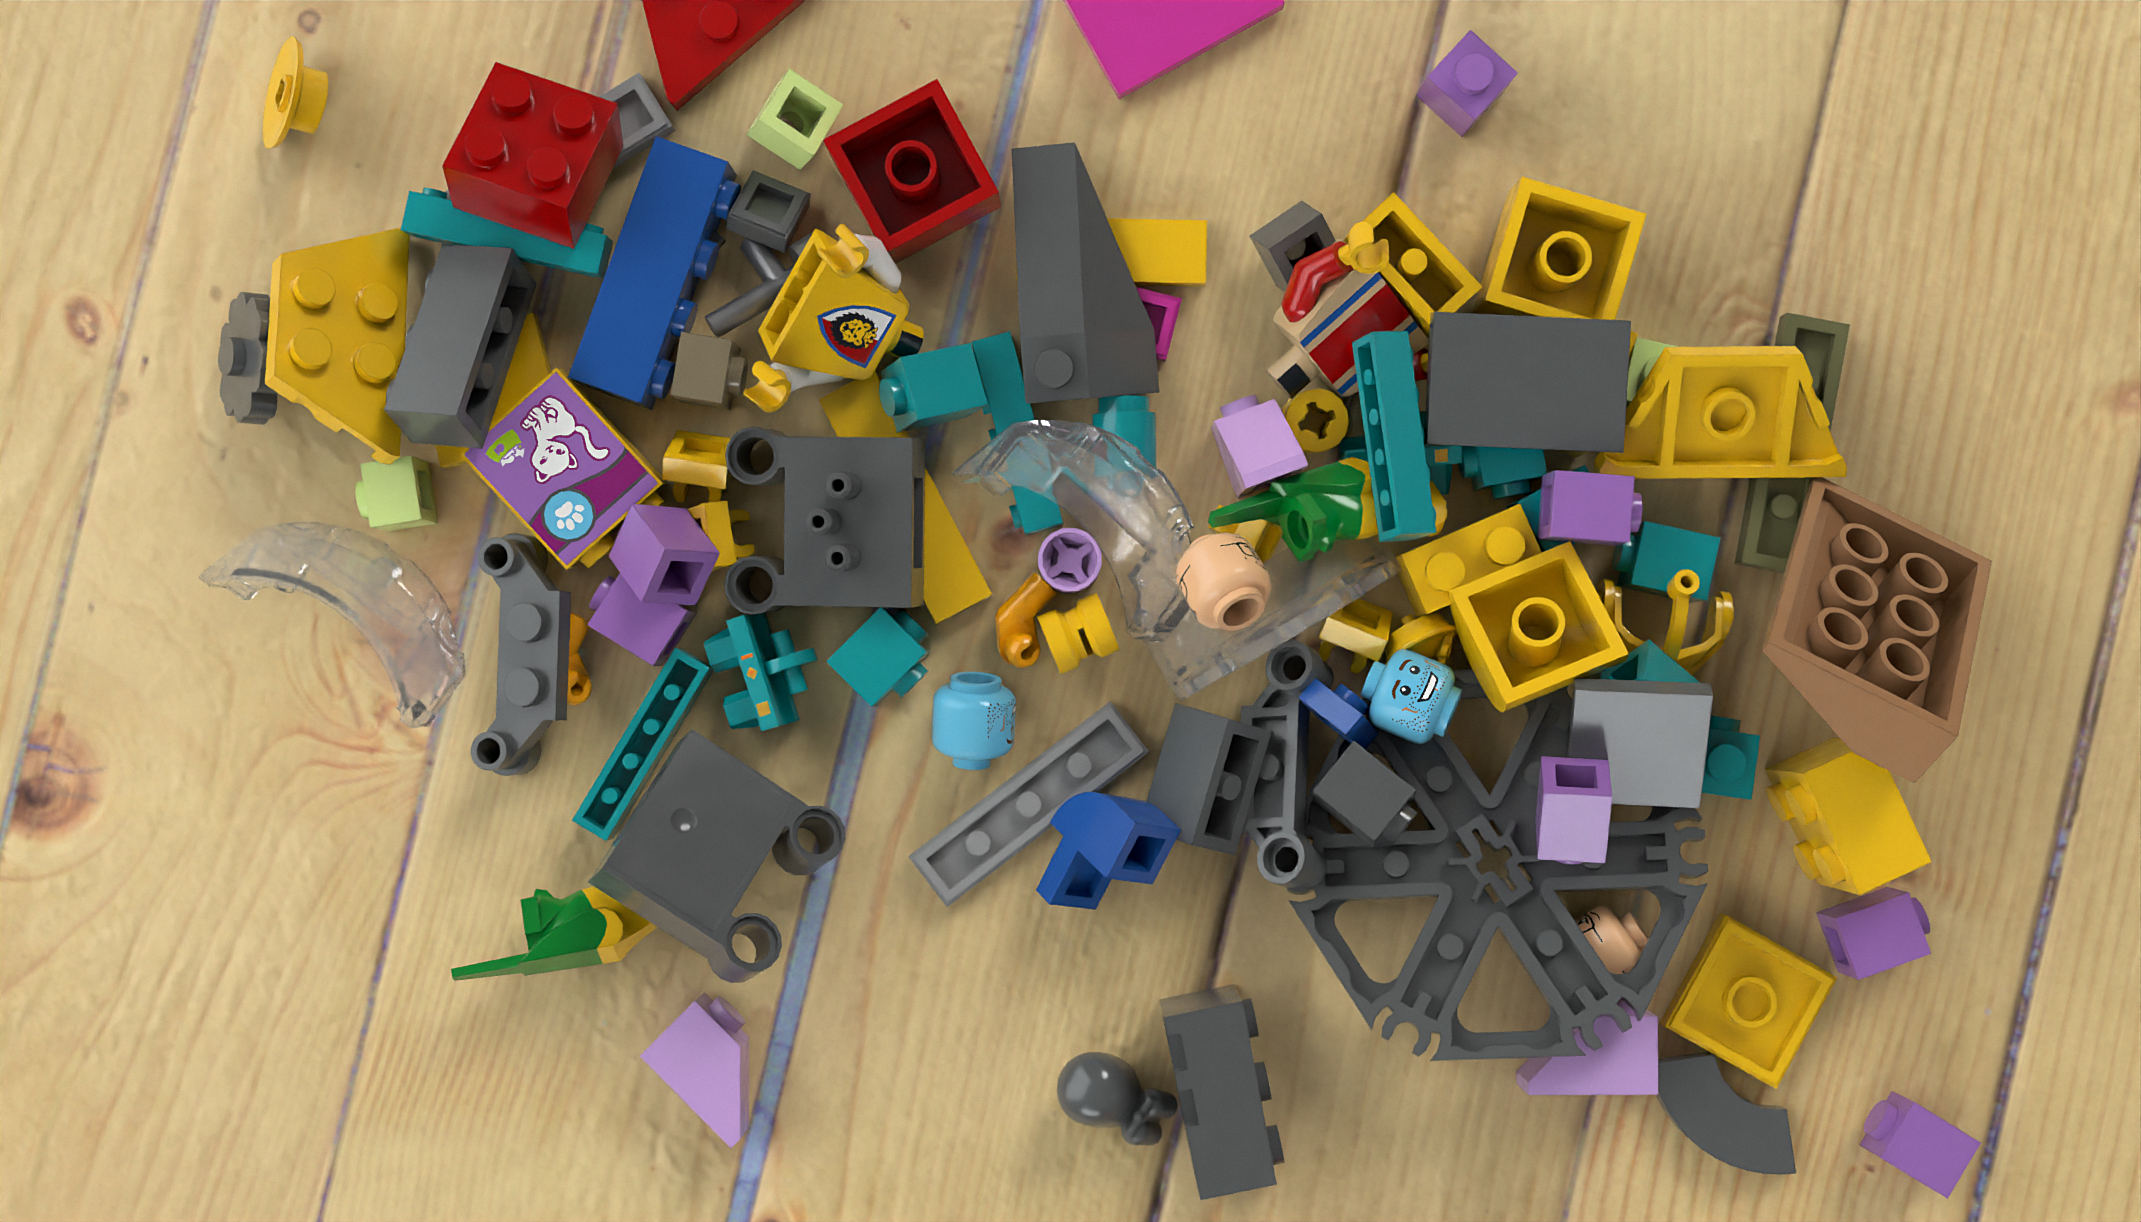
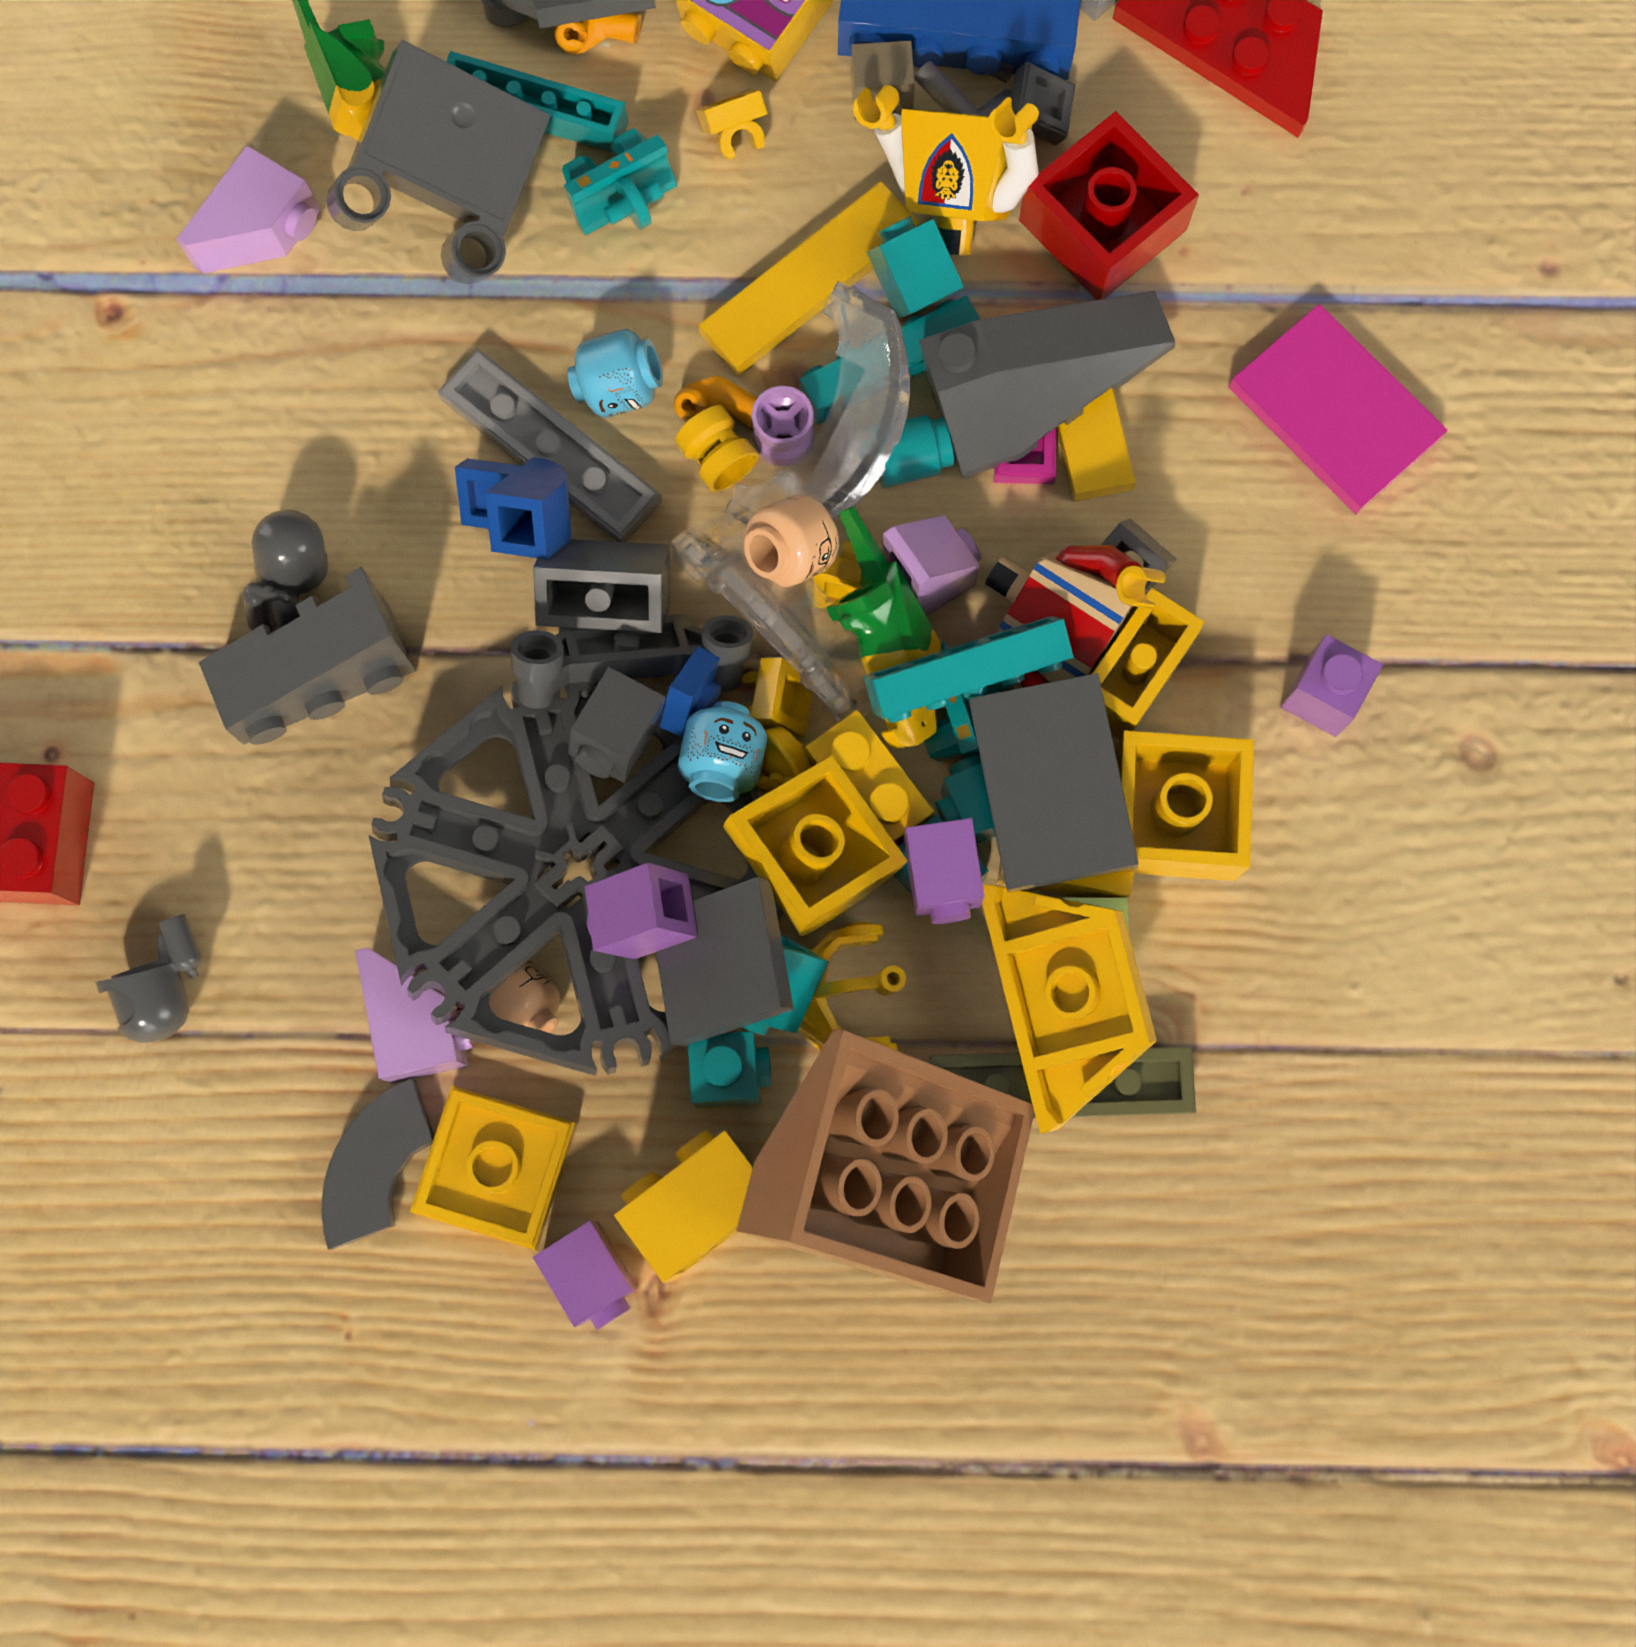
camera: 80 degrees right, 10 degrees down
(638, 626) = (647, 73): medium lavender brick -> none
(663, 554) = (705, 67): medium lavender brick -> none
(696, 461) = (798, 92): yellow tile -> none
(806, 107) = (1141, 86): yellowish green plate -> none
(847, 521) = (770, 219): dark grey piece -> none
(883, 656) = (656, 281): teal brick -> none
(1308, 422) = (970, 624): yellow wheel -> none
(1659, 553) = (925, 993): teal brick -> none
(1918, 1143) = (379, 1366): medium lavender brick -> none

